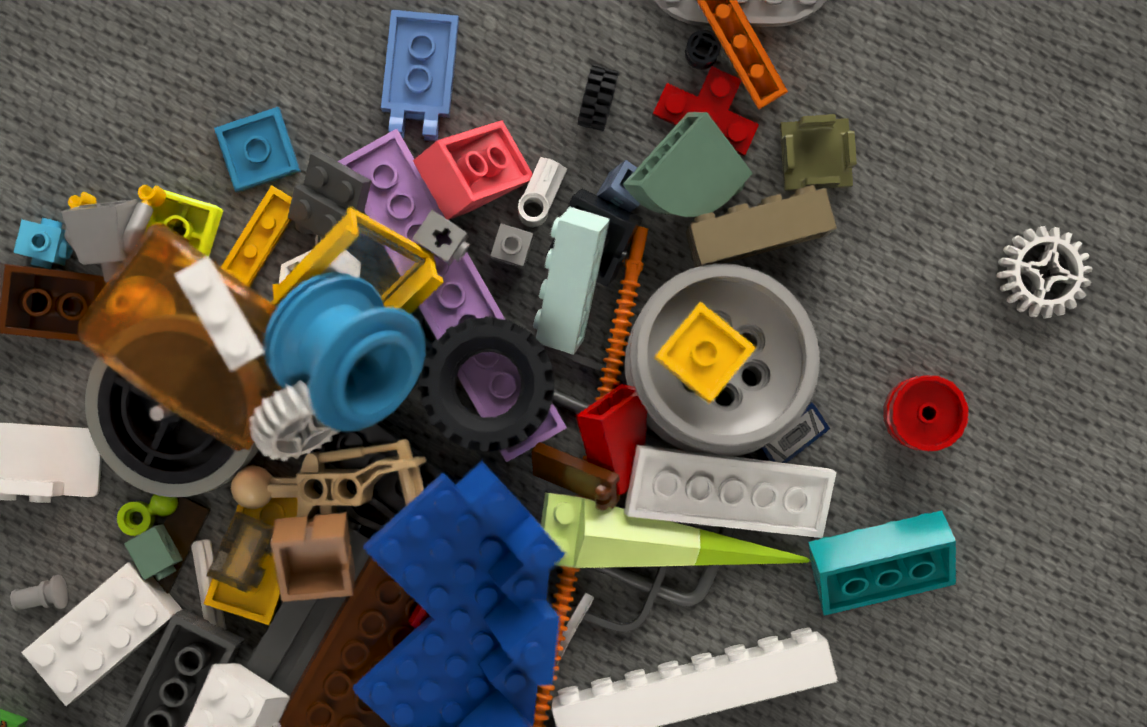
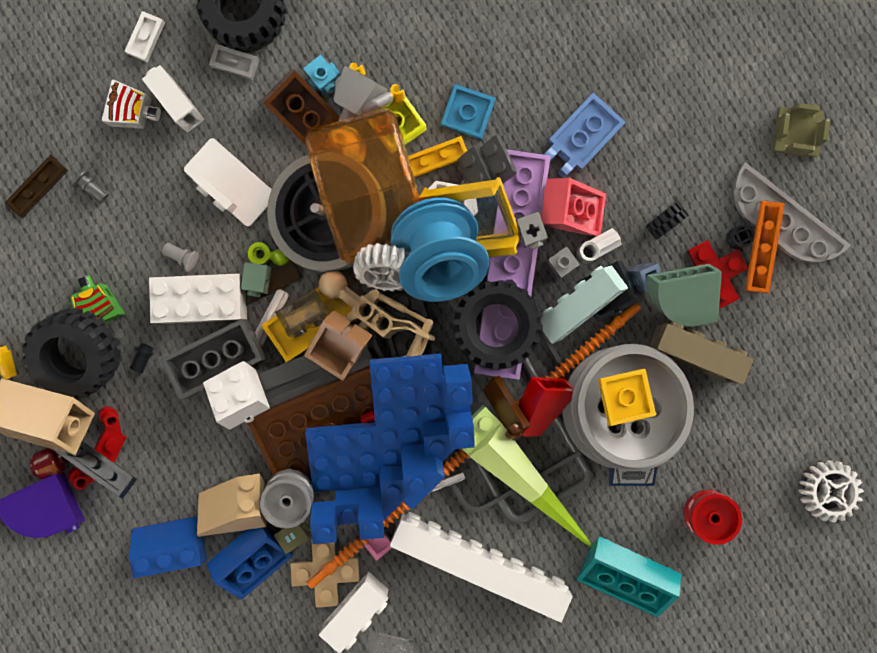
camera: 40 degrees right, 0 degrees up
(220, 313) = (390, 180): white plate -> none
(729, 491) = (578, 478): white plate -> none
(817, 152) = (760, 336): olive panel -> none

